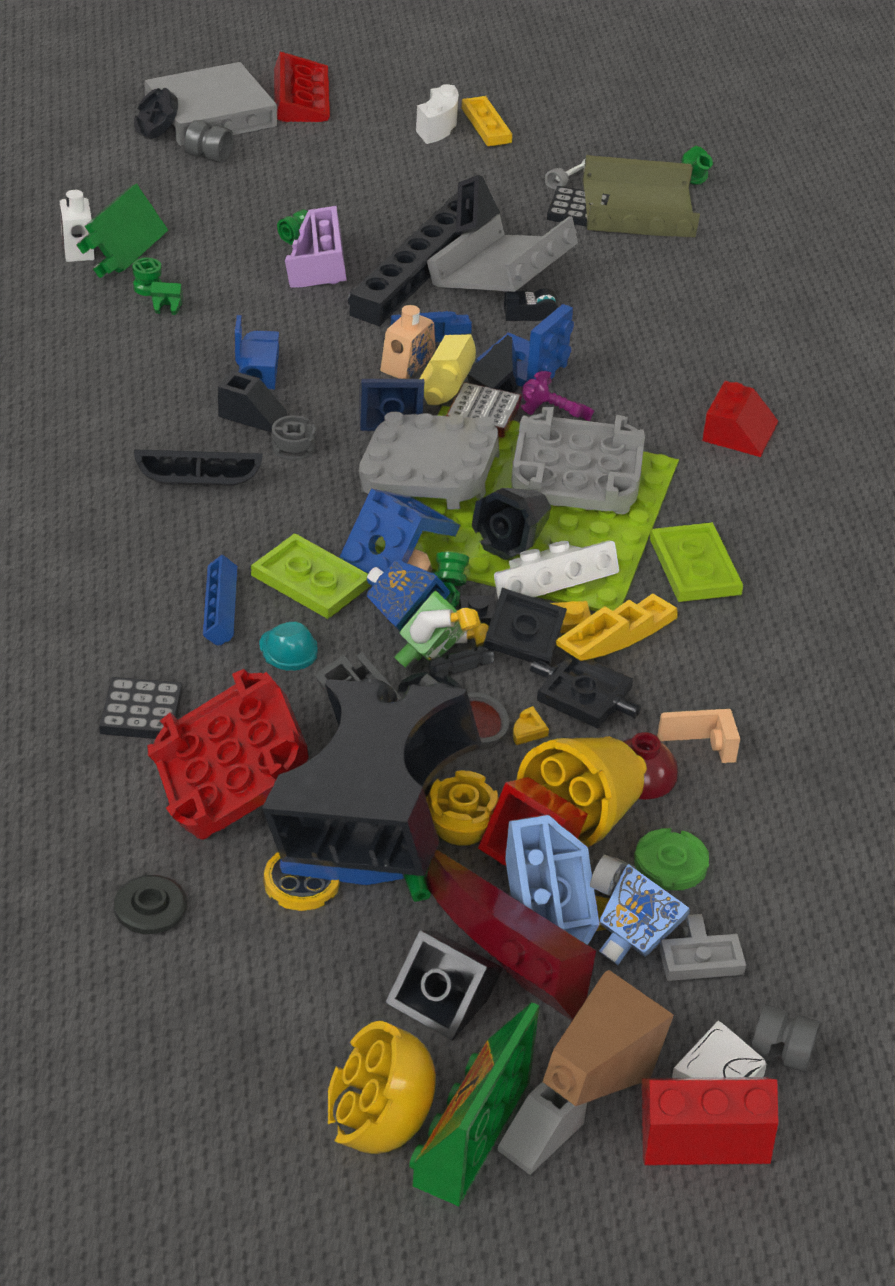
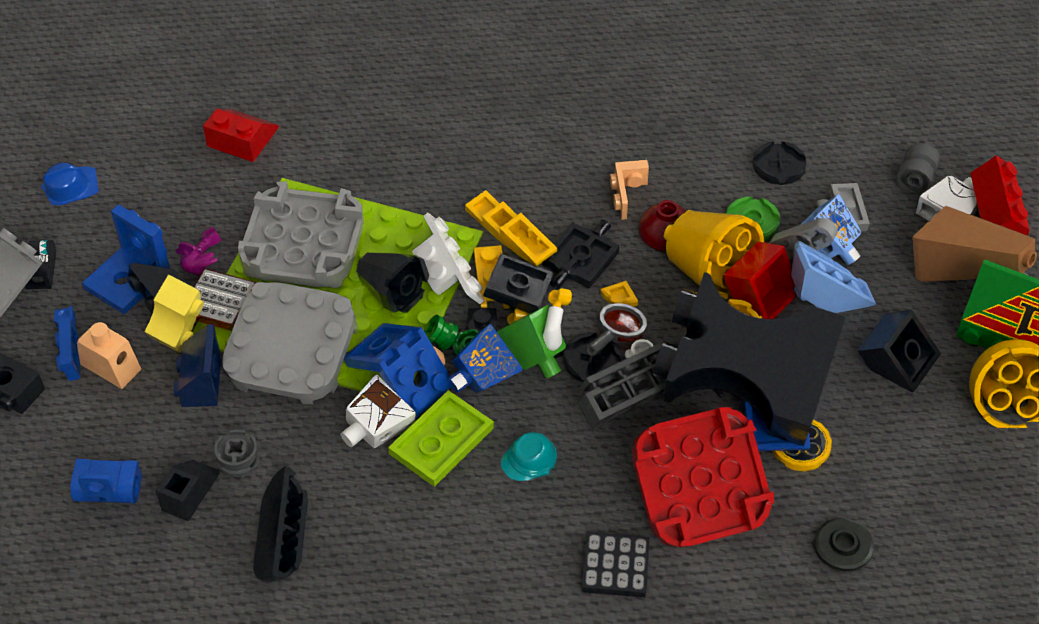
camera: 85 degrees left, 10 degrees up
(220, 600) = (477, 506): blue piece -> none
(330, 519) = (376, 415): none -> torso
(524, 943) = (883, 287): dark red wedge -> none
(646, 317) = (69, 183): none -> blue piece
(696, 562) = (424, 175): lime plate -> none
(782, 896) = (779, 163): none -> black tile

